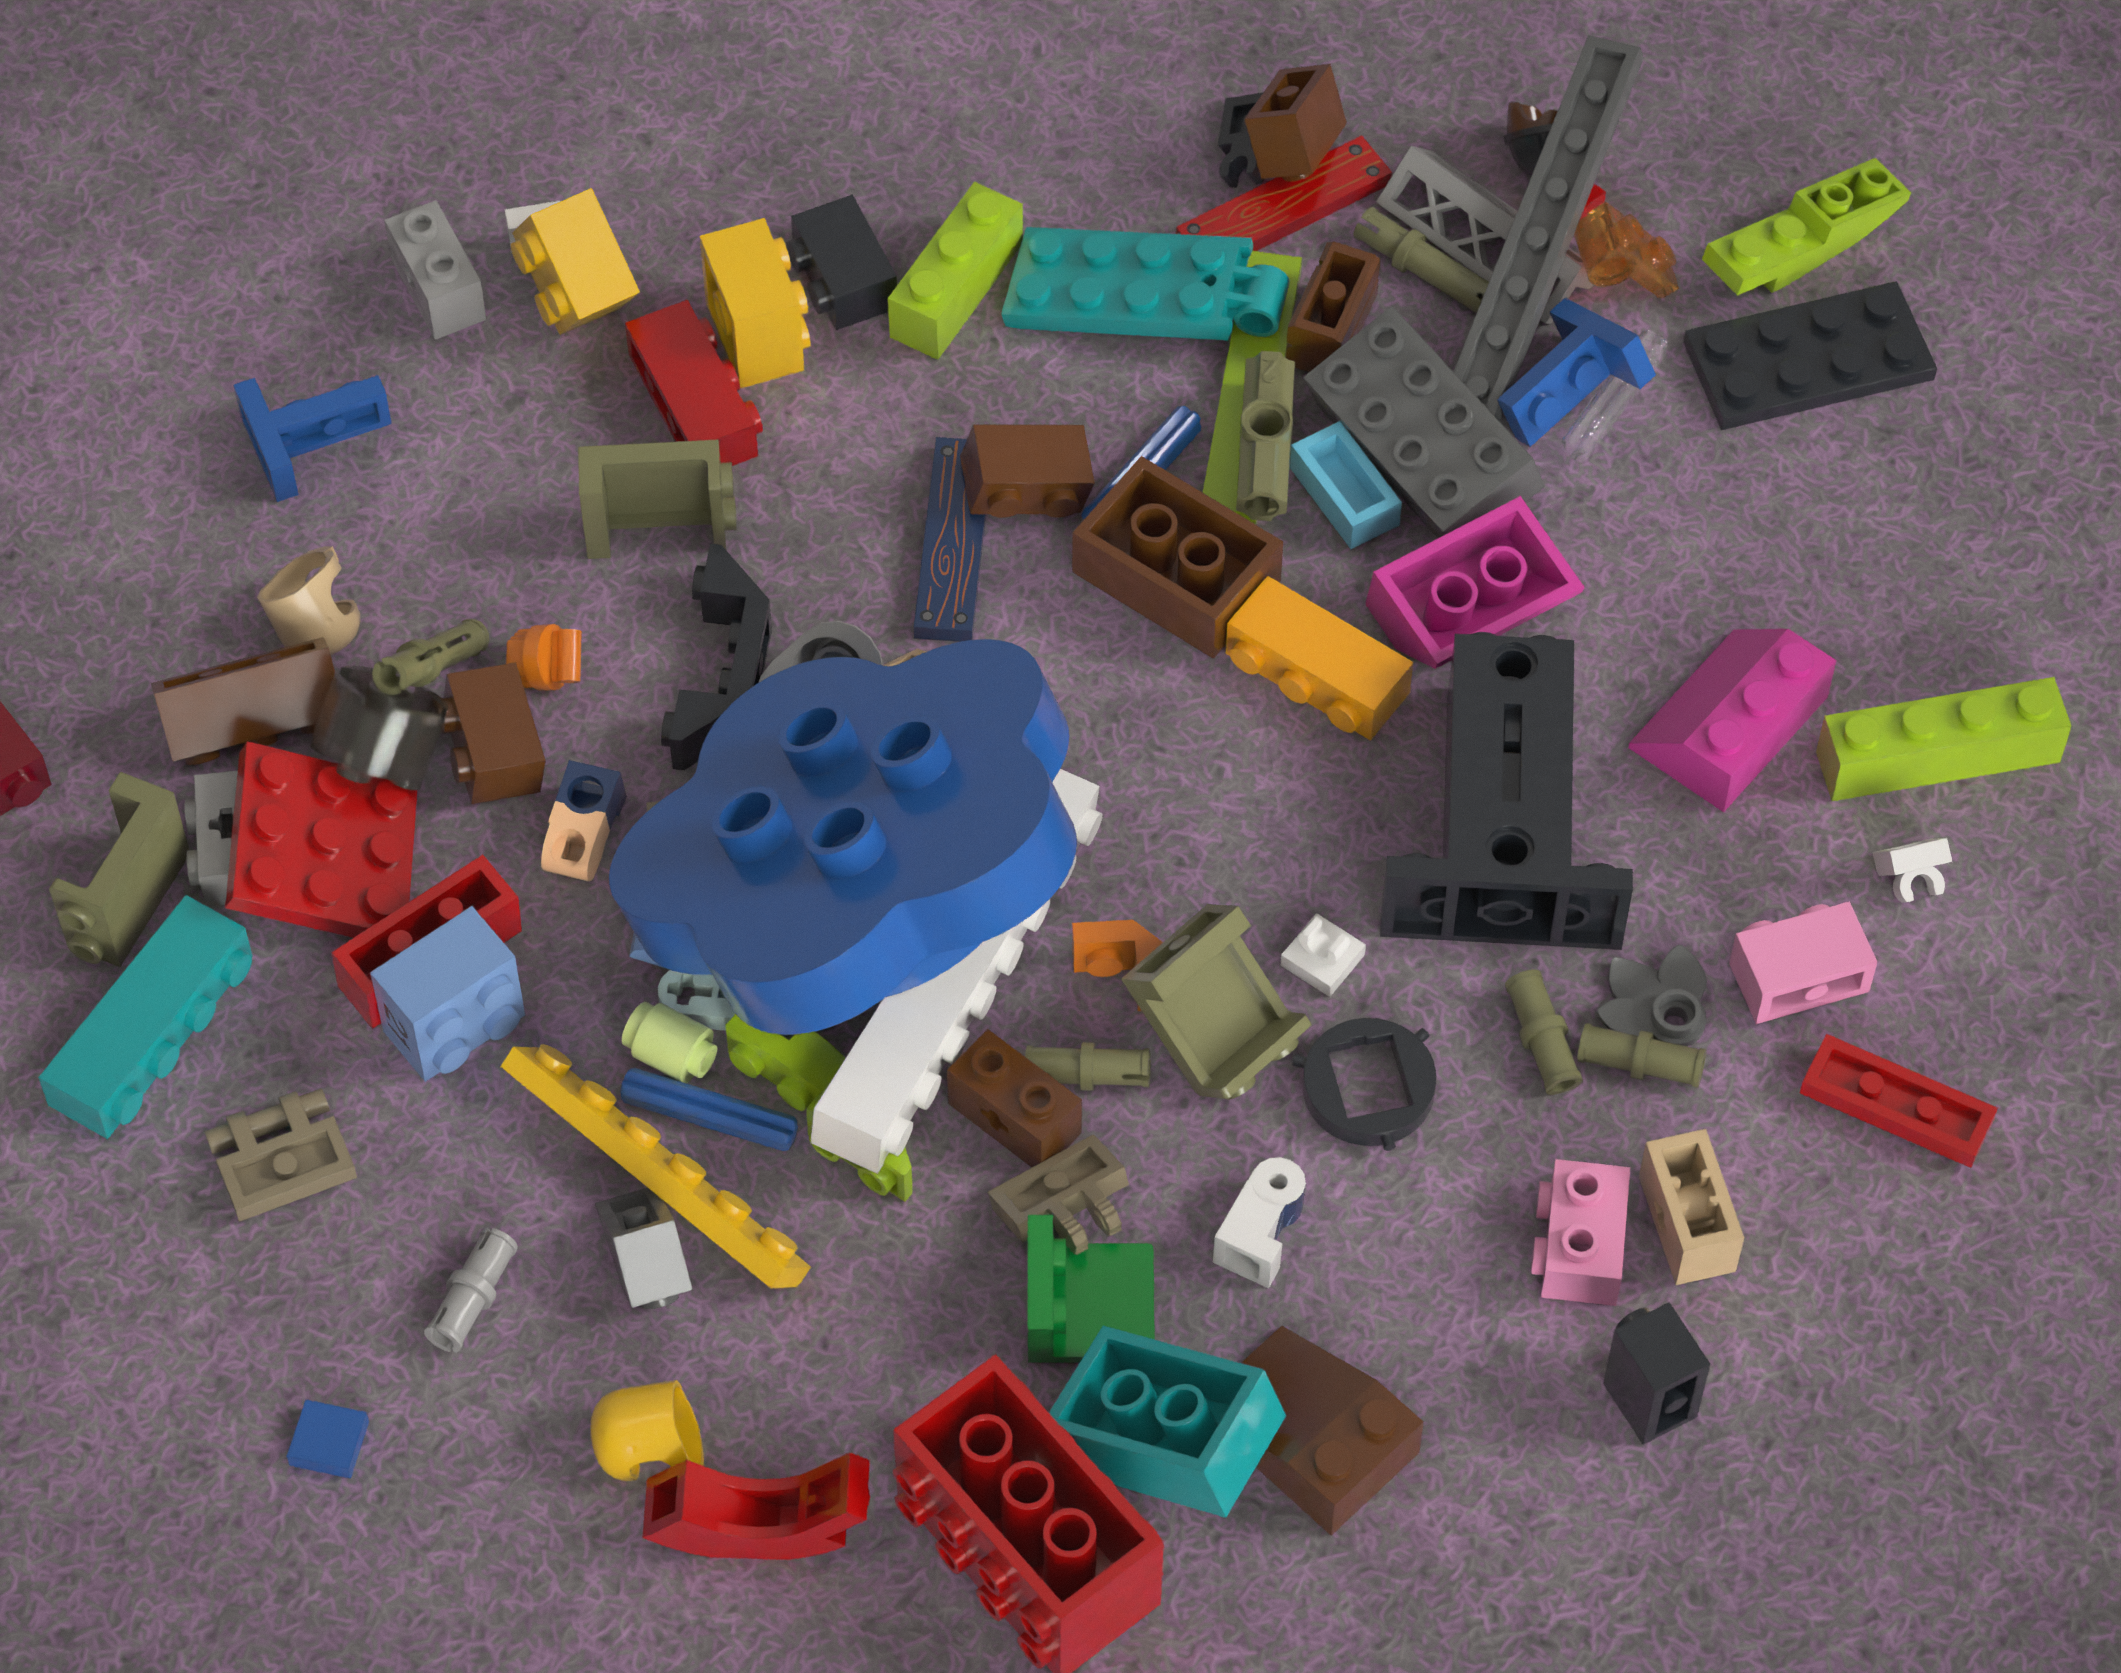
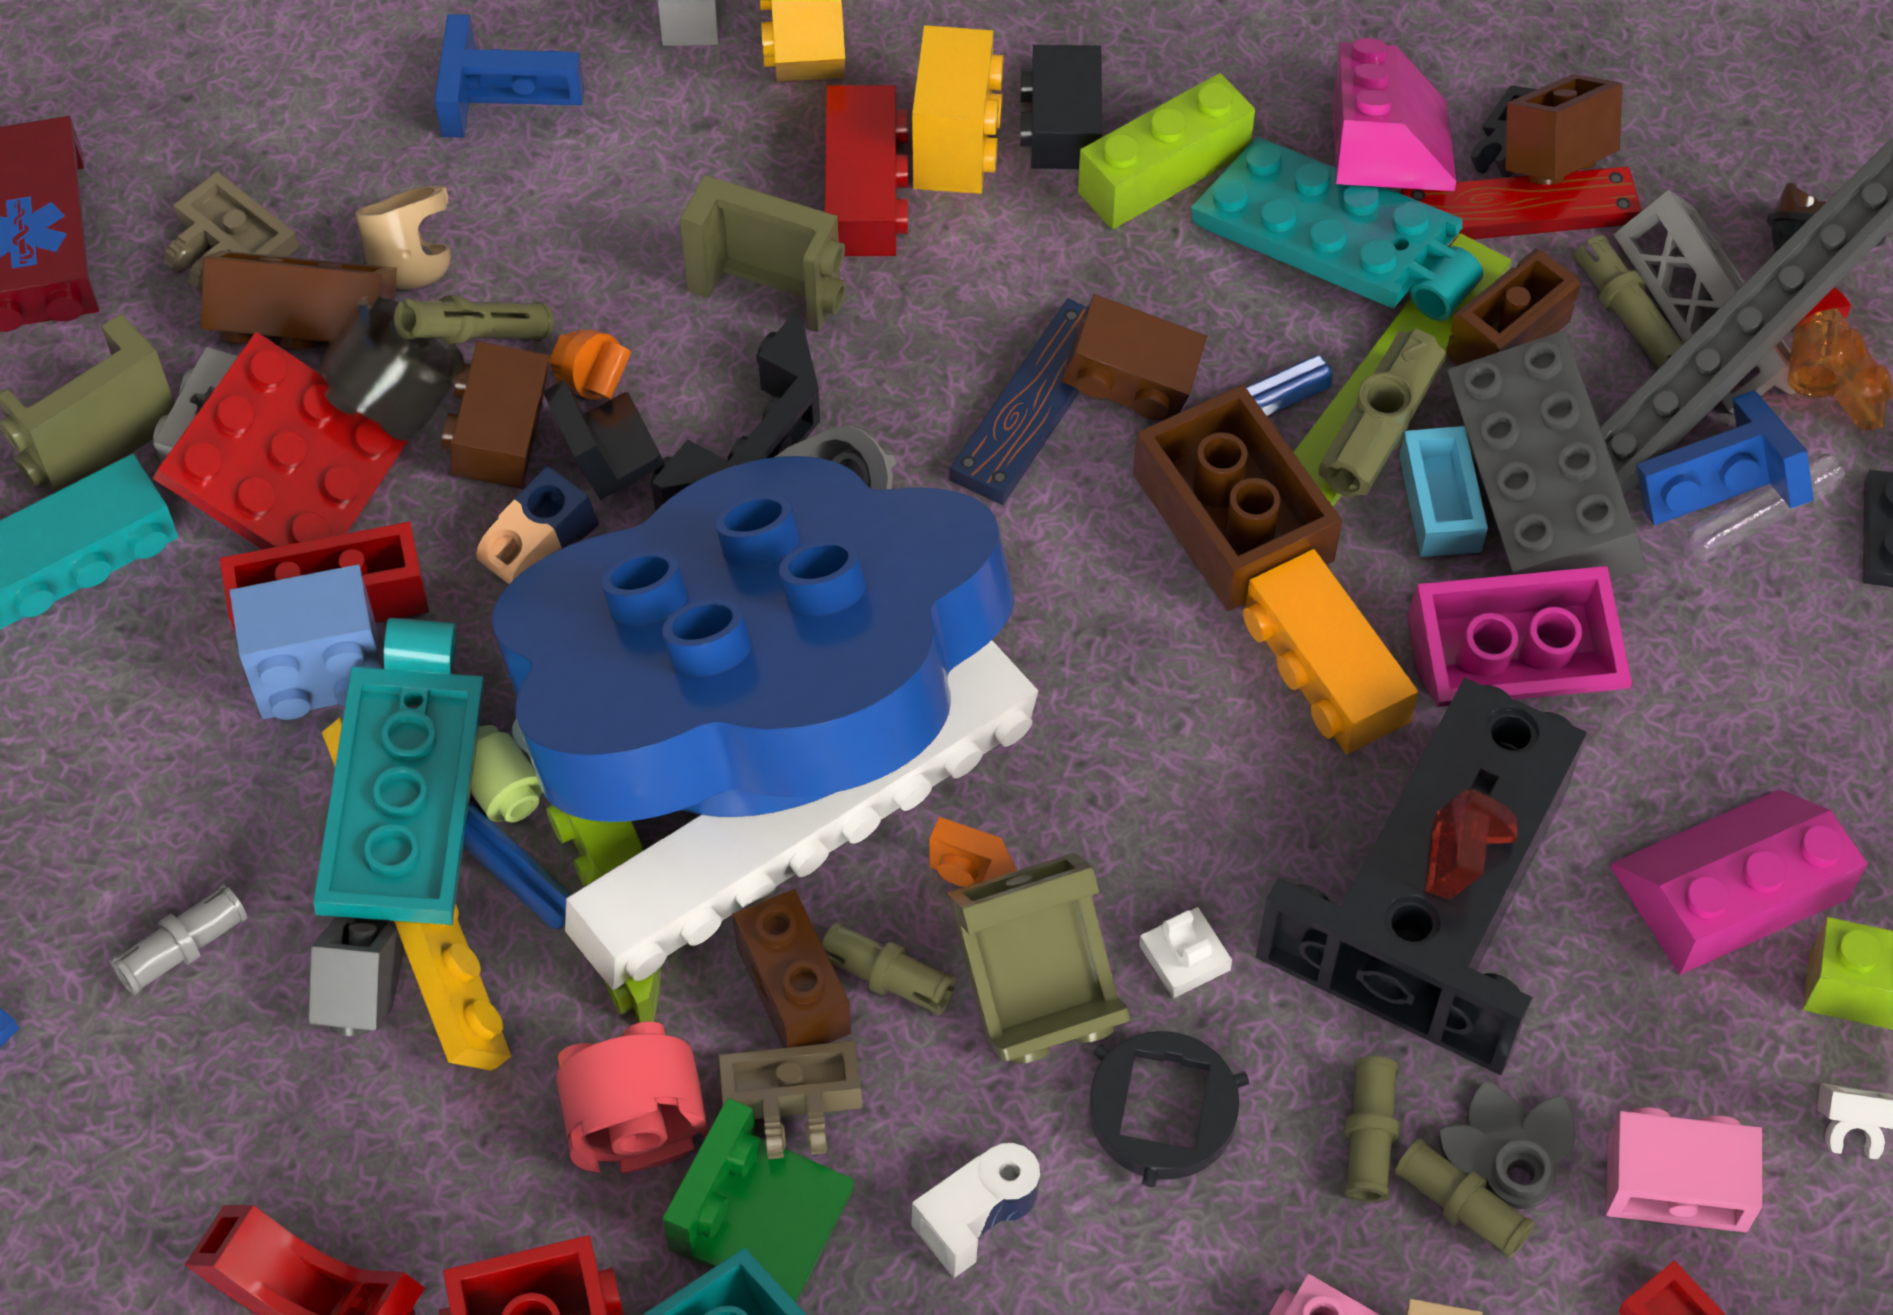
camera: 25 degrees right, 0 degrees up
(134, 657) = (227, 221): none -> dark tan hinge
(286, 1166) = (85, 747): dark tan plate -> none
(601, 718) = (607, 441): none -> black panel
(607, 1073) = (401, 782): none -> teal hinge
(644, 1426) = (231, 1153): yellow helmet -> none
(942, 1252) = (630, 1099): none -> coral brick
(1139, 173) = (1388, 121): none -> dark pink slope
(1523, 766) = (1461, 839): none -> clear red tile

